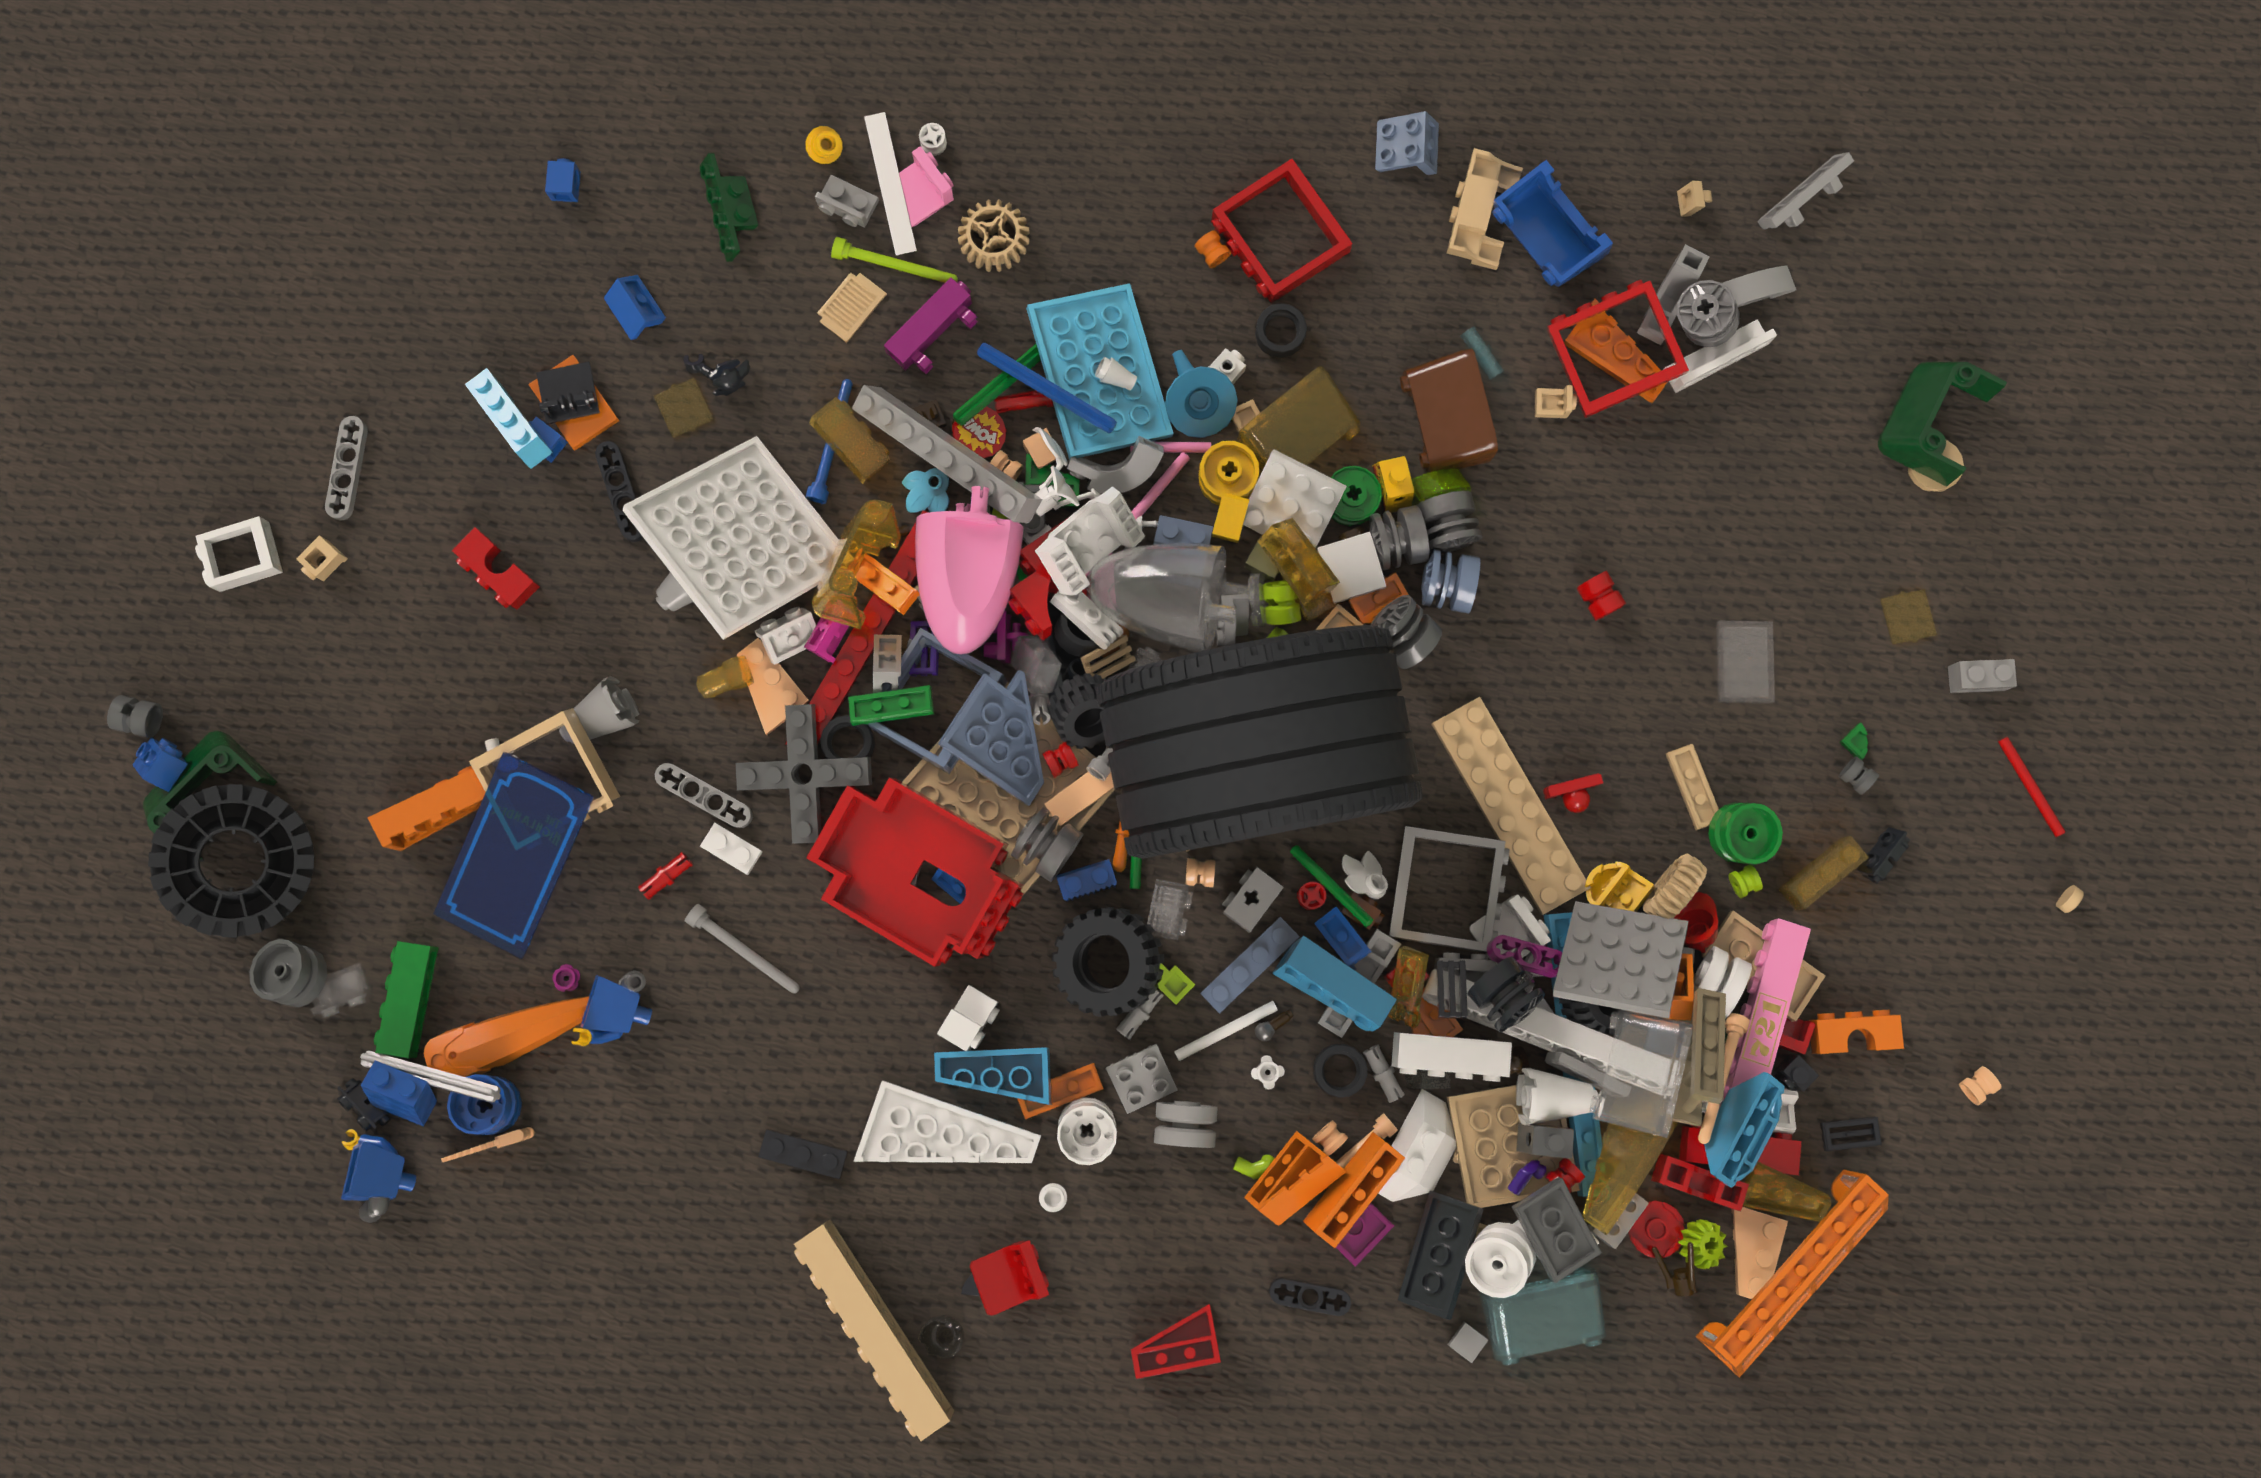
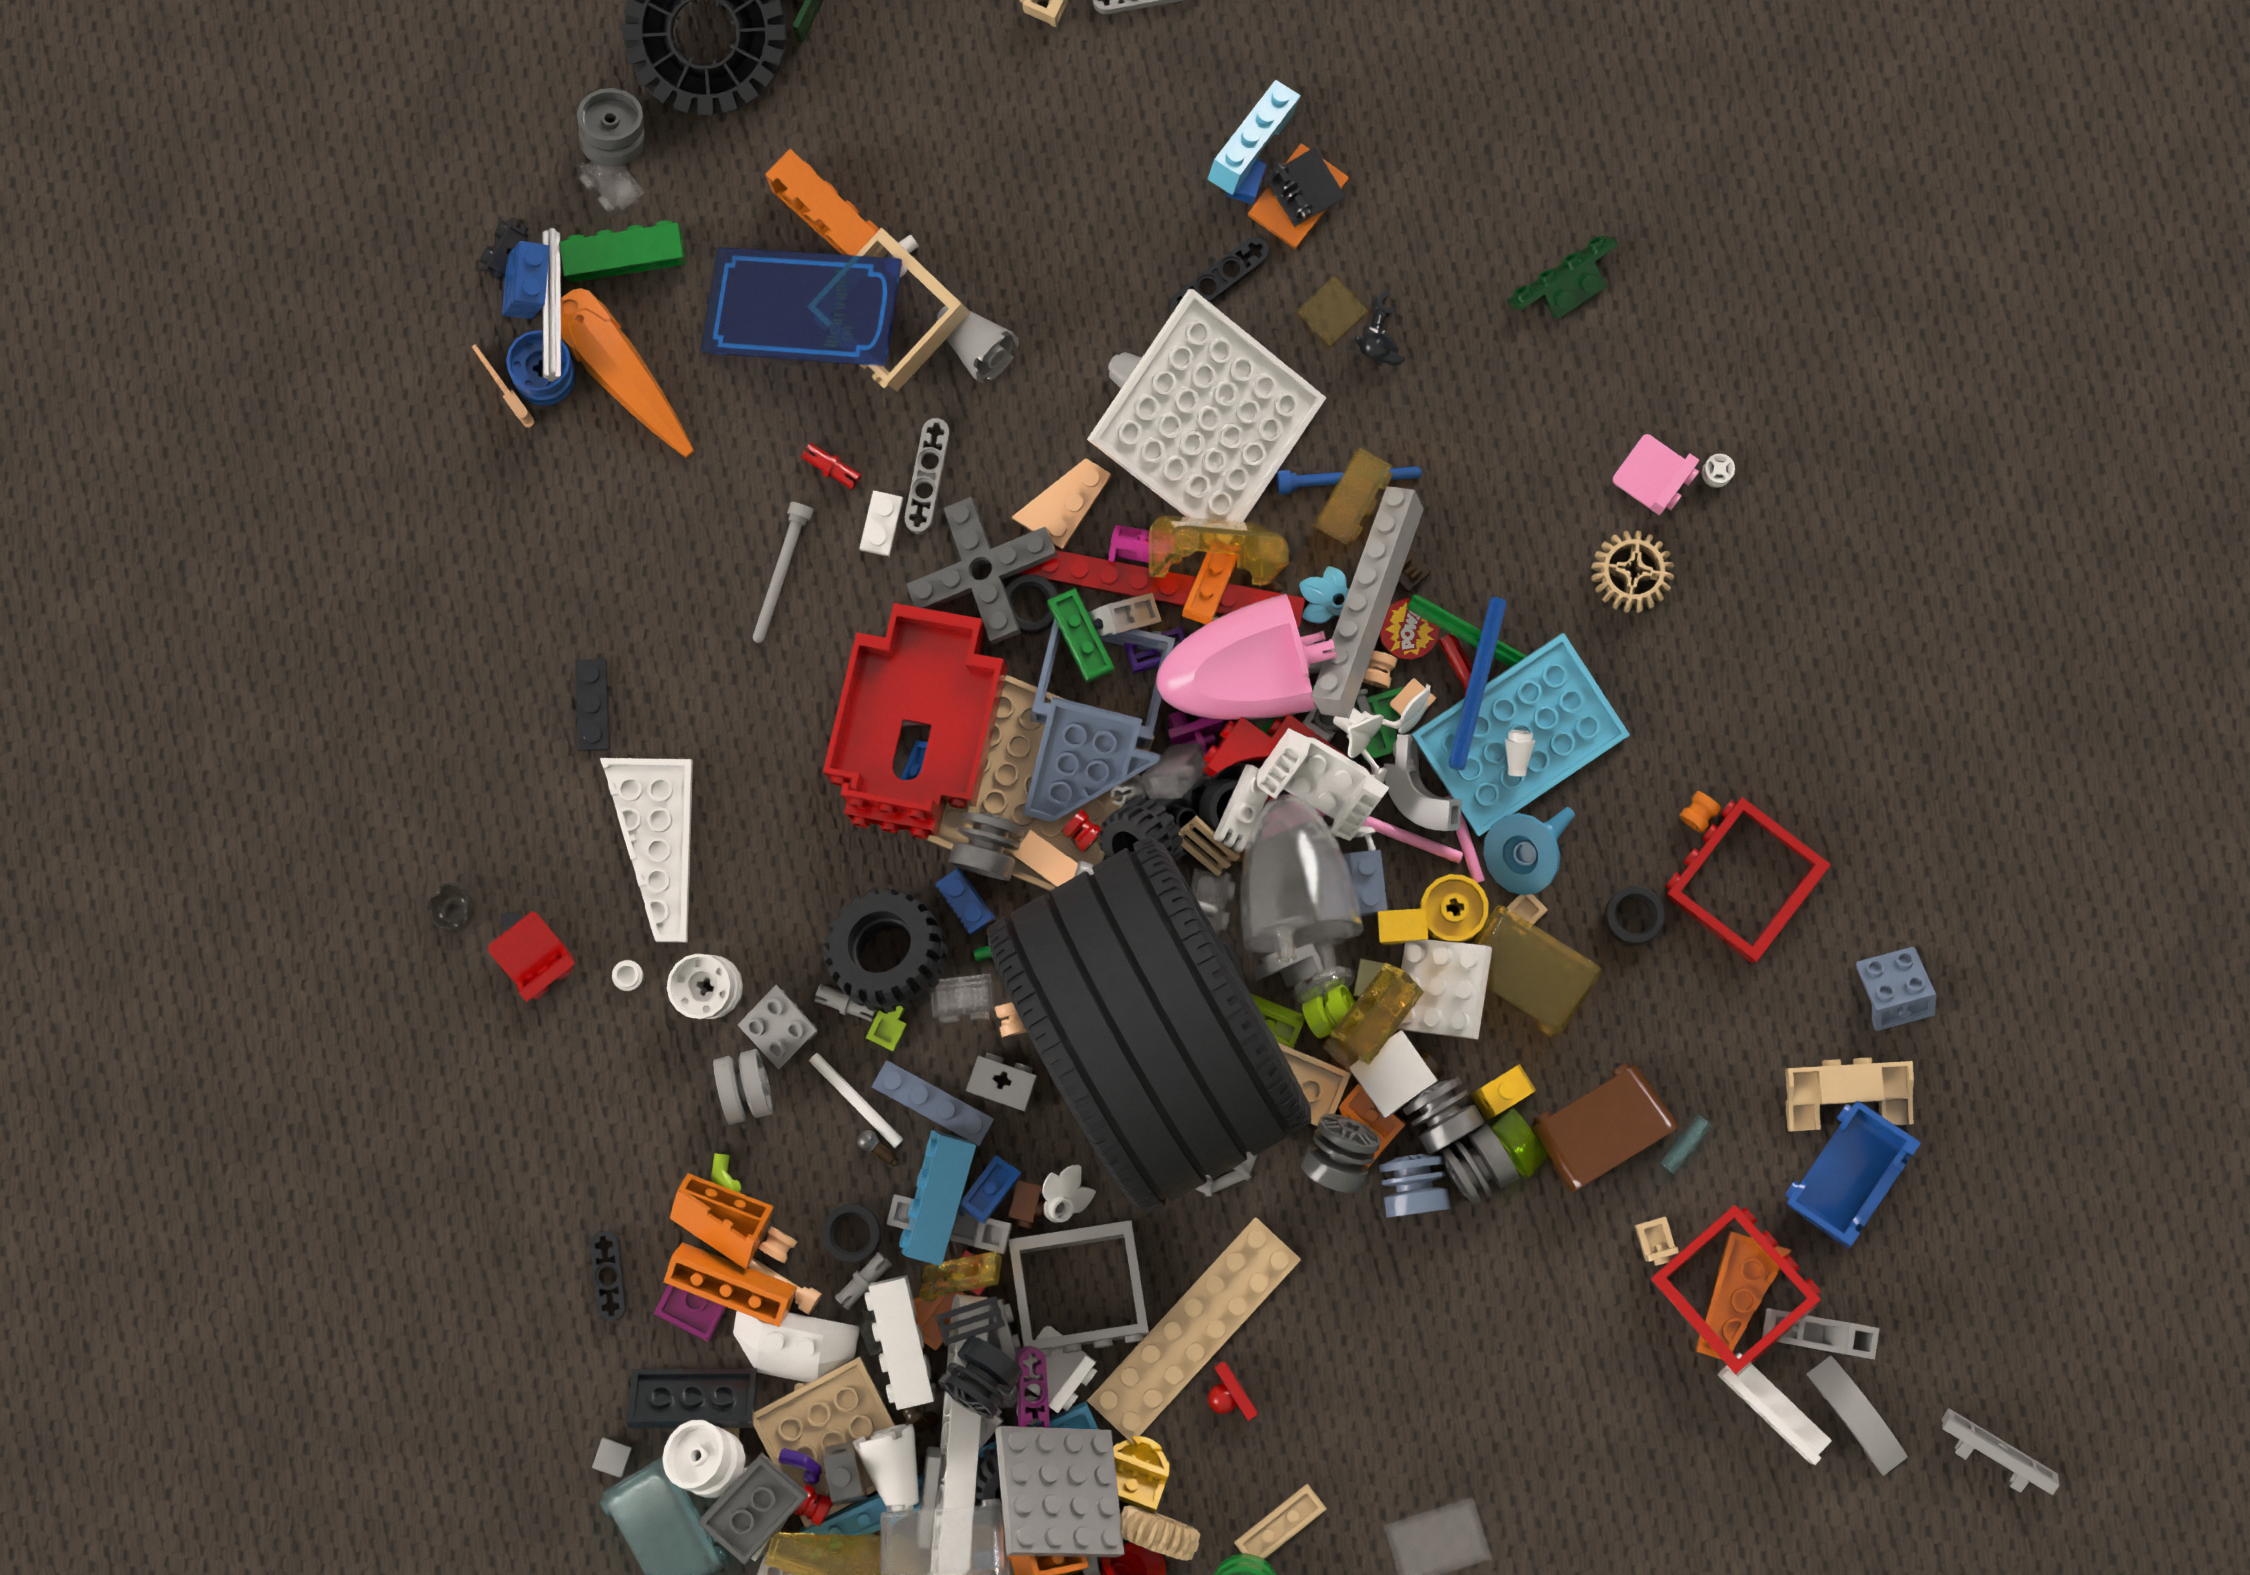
camera: 80 degrees right, 0 degrees up
(374, 1174) = (438, 284): blue torso -> none
(478, 553) = (1101, 156): red arch -> none
(560, 983) = (687, 403): magenta plate -> none
(563, 180) = (1533, 99): blue brick -> none
(612, 1009) = (676, 461): blue torso -> none
(633, 305) = (1423, 221): blue panel -> none
(730, 676) = (1059, 460): clear yellow piece -> none
(787, 634) = (1123, 502): white bracket -> none
(823, 145) = (1671, 357): yellow piece -> none
(842, 249) = (1561, 417): lime piece -> none
(846, 201) = (1617, 403): light grey bracket -> none
(850, 305) = (1503, 446): tan window -> none
(875, 1330) = (437, 836): tan brick -> none
(890, 183) = (1652, 442): white sticker -> none
(929, 323) = (1510, 536): magenta brick -> none
(968, 1019) = (777, 825): white brick -> none
(1003, 1072) = (738, 883): dark azure wedge -> none
(1065, 1090) = (739, 946): orange tile -> none
(1179, 1347) = (514, 1154): red wedge -> none
(1234, 359) = (1583, 875): white brick -> none
(1275, 1072) = (818, 1161): white plate -> none
(1314, 891) = (1022, 1143): red wheel -> none
(1331, 886) = (1041, 1162): green bar -> none
(1369, 493) = (1476, 1070): green wheel -> none
(1601, 595) = (1455, 1358): red wheel -> none
(1692, 198) = (1945, 1326): tan tile -> none
(1723, 314) = (1804, 1394): flat silver wheel -> none

